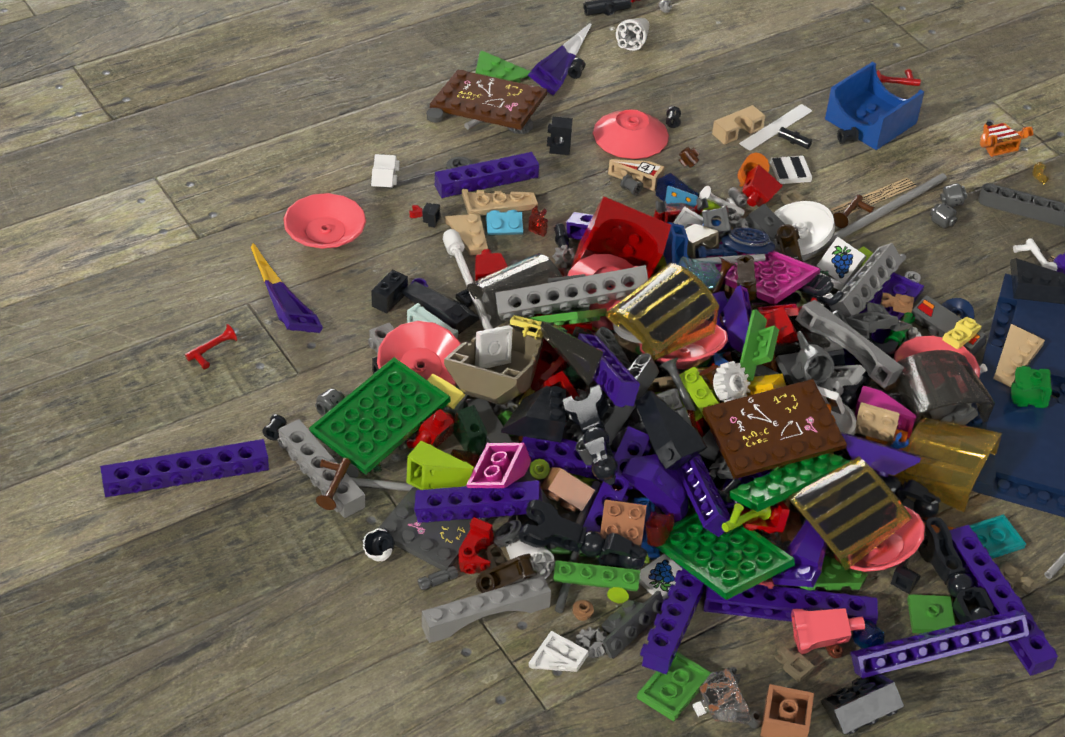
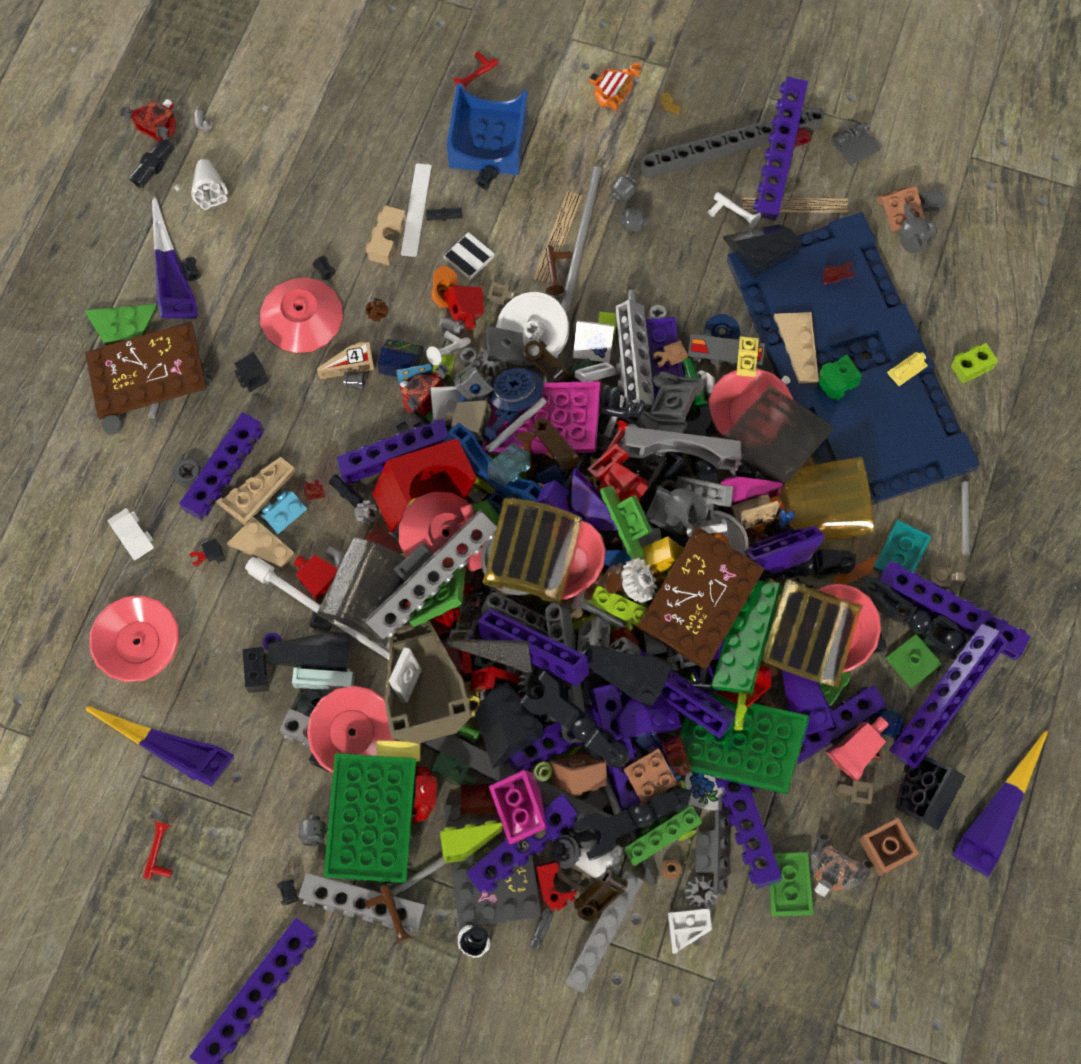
camera: 35 degrees left, 25 degrees up
(526, 324) = (432, 629): light yellow piece -> none

